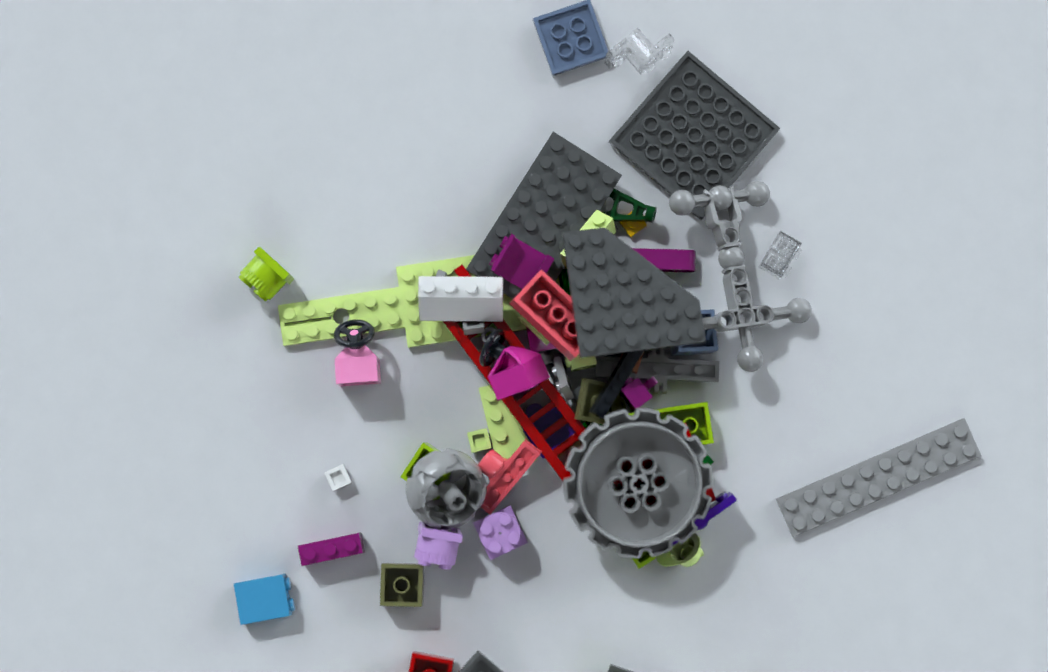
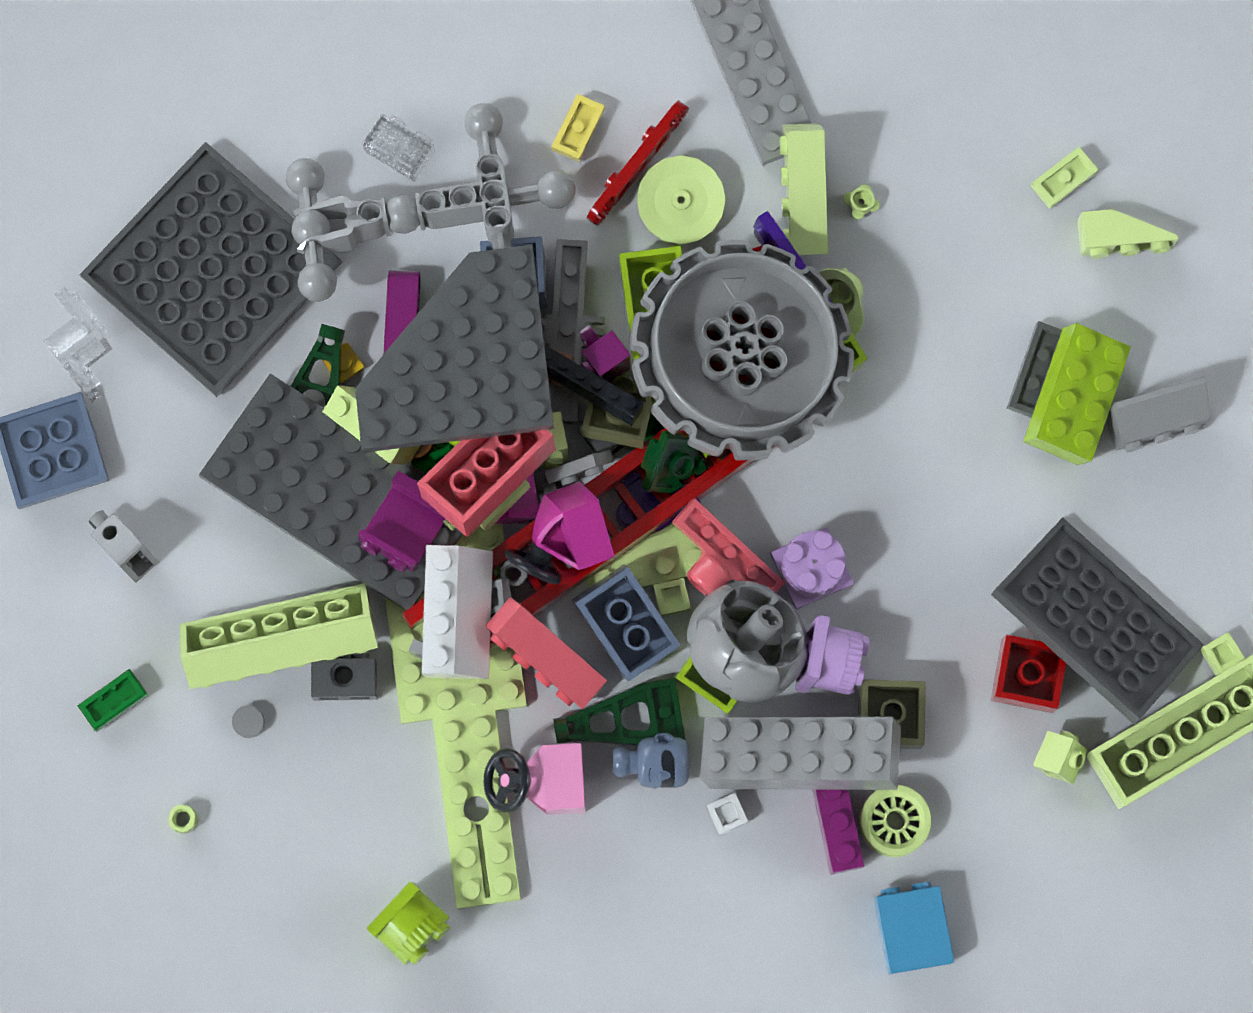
camera: 90 degrees left, 5 degrees down
(315, 589) = (921, 832): none -> yellowish green wheel
(334, 125) = (173, 819): none -> yellowish green axle
(370, 433) = (658, 763): none -> sand blue piece
(373, 524) = (801, 753): none -> light grey brick
(396, 170) = (248, 721): none -> light grey tile
(404, 435) = (662, 707): none -> dark green plate
(409, 84) = (112, 700): none -> green plate
(419, 218) = (361, 687): none -> dark grey brick
(437, 357) = (545, 653): none -> coral brick
(448, 186) = (277, 636): none -> yellowish green brick
(459, 409) = (626, 622): none -> sand blue brick
(508, 85) = (122, 545): none -> light grey torso
(563, 435) = (670, 462): none -> dark green plate
(748, 443) = (681, 199): none -> yellowish green piece
(757, 527) = (805, 187): none -> yellowish green wedge
(757, 567) = (870, 203): none -> yellowish green plate
(790, 425) = (653, 141): none -> red piece
(797, 374) = (578, 127): none -> light yellow plate

